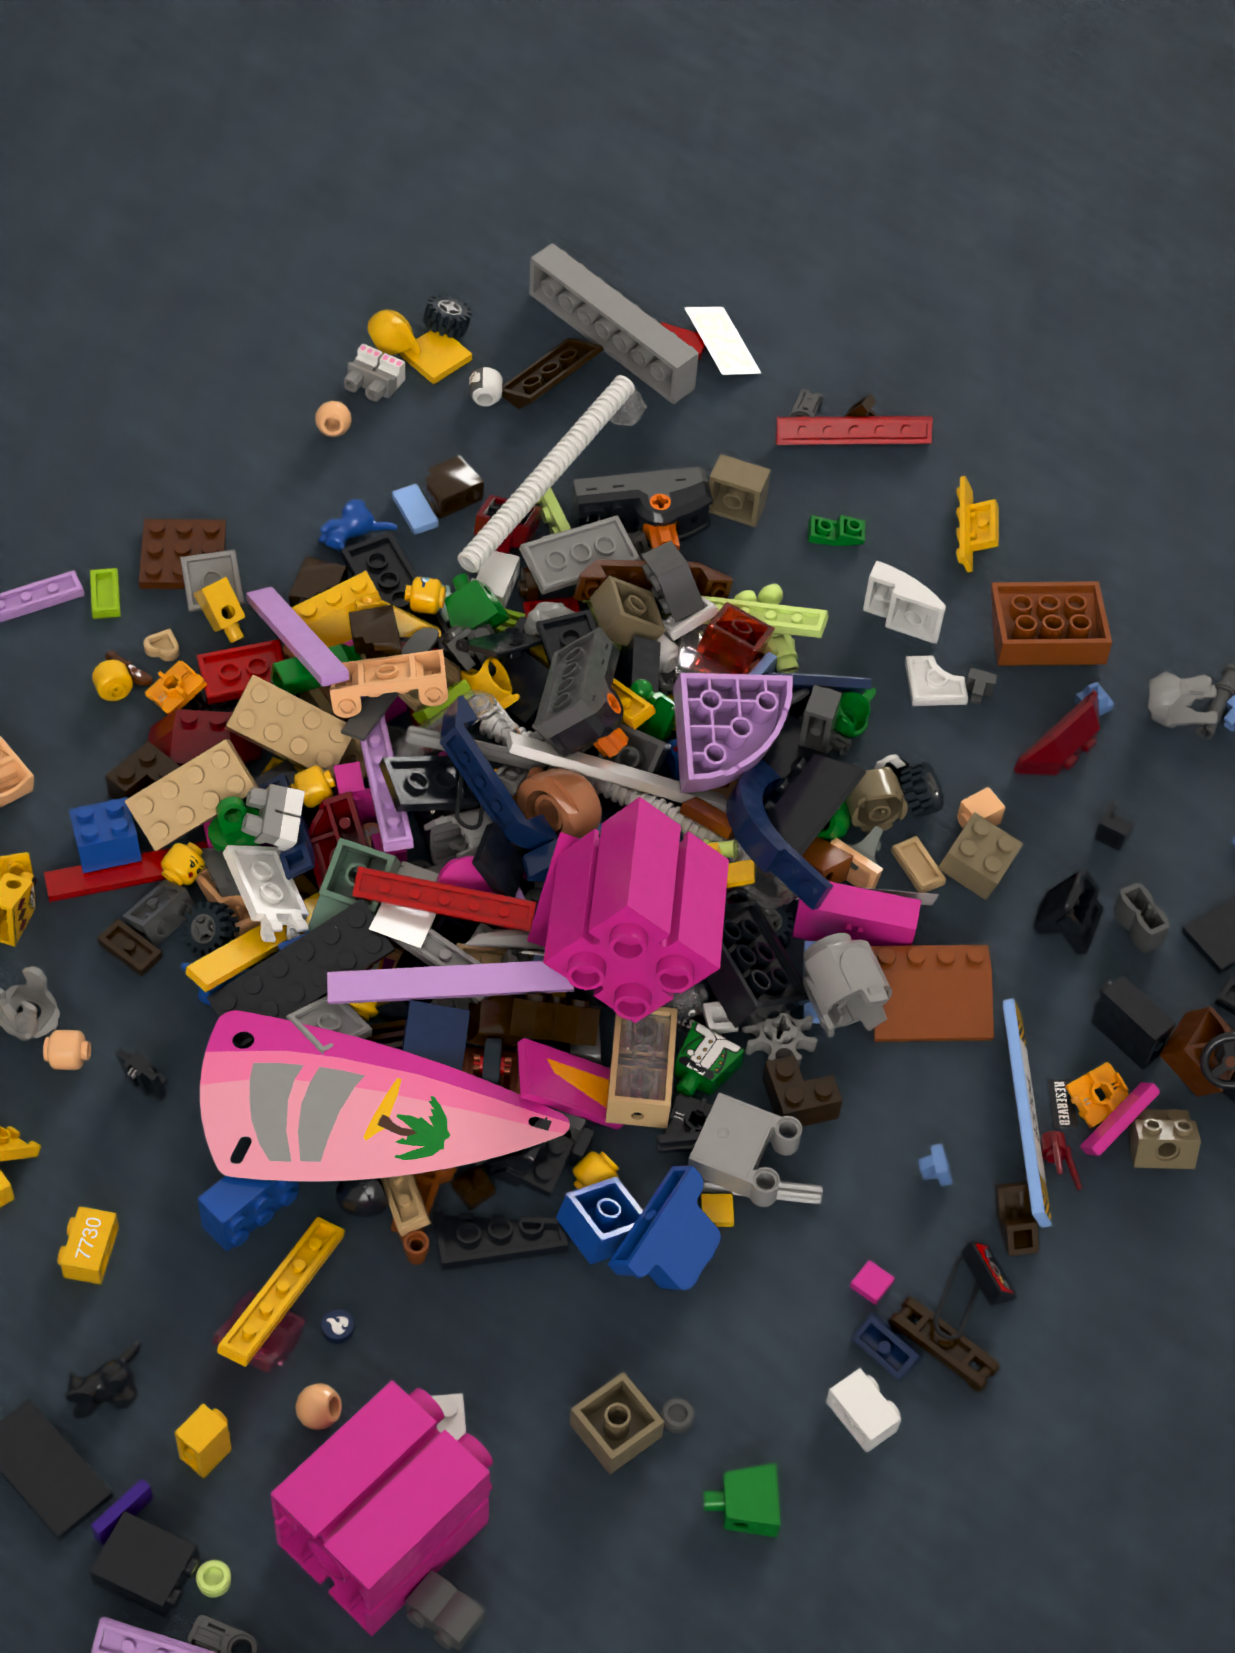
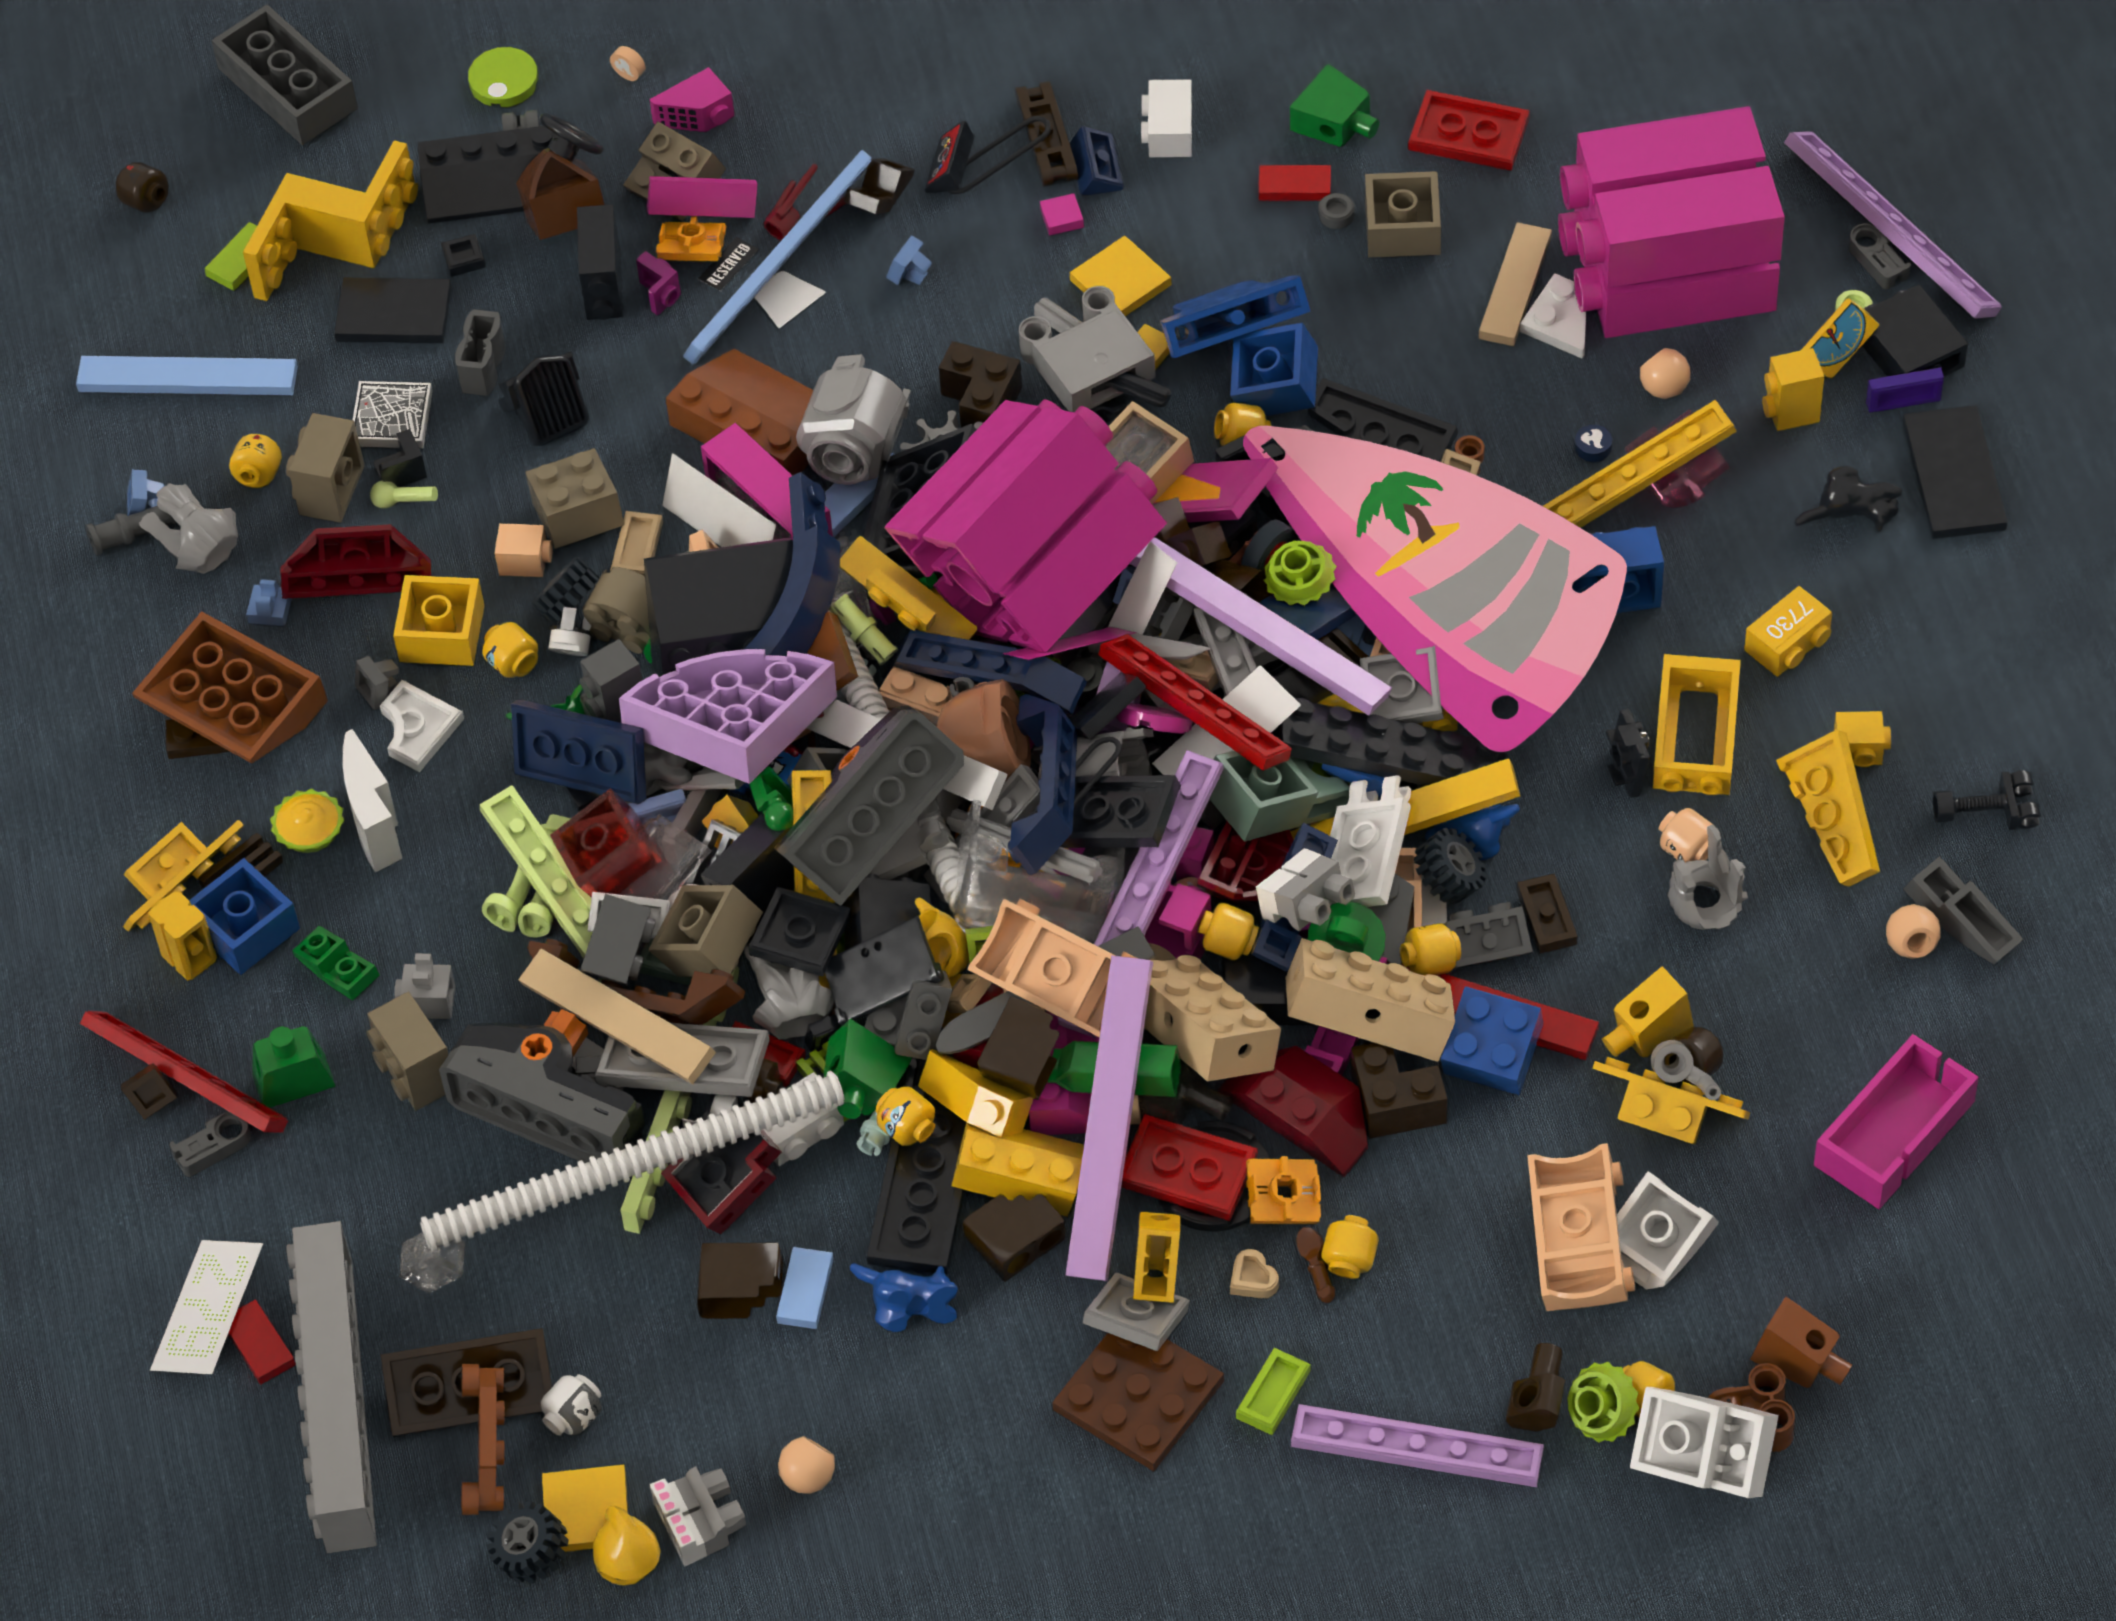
camera: 135 degrees left, 0 degrees up
(111, 1090) = (1702, 675): none -> yellow piece
(198, 1517) = (1841, 336): none -> slope
(454, 1050) = (1299, 572): none -> lime piece
(493, 1432) = (1515, 284): none -> tan tile
(517, 346) = (485, 1385): none -> dark orange plate
(627, 546) = (617, 1016): none -> tan tile
(634, 1560) = (1469, 130): none -> red tile
(727, 1420) = (1294, 182): none -> red tile
(767, 535) = (429, 985): none -> light grey brick
(784, 1254) = (1126, 272): none -> yellow tile
(800, 448) = (289, 1066): none -> green torso
(907, 512) = (245, 915): none -> blue brick
(920, 744) = (510, 650): none -> yellow head
(926, 480) = (182, 935): none -> yellow brick
(935, 578) = (307, 820): none -> yellow piece
(944, 534) = (252, 851): none -> dark brown tile
(979, 732) = (439, 620): none -> yellow brick
(996, 1101) = (786, 297): none -> white sticker
(1085, 1049) = (660, 280): none -> magenta bracket
(1091, 813) = (388, 494): none -> yellowish green bar
(1146, 780) = (325, 467): none -> dark tan brick
(1157, 860) = (389, 409): none -> tile
(1198, 773) = (255, 458): none -> yellow head
(1203, 1204) = (694, 103): none -> dark pink slope

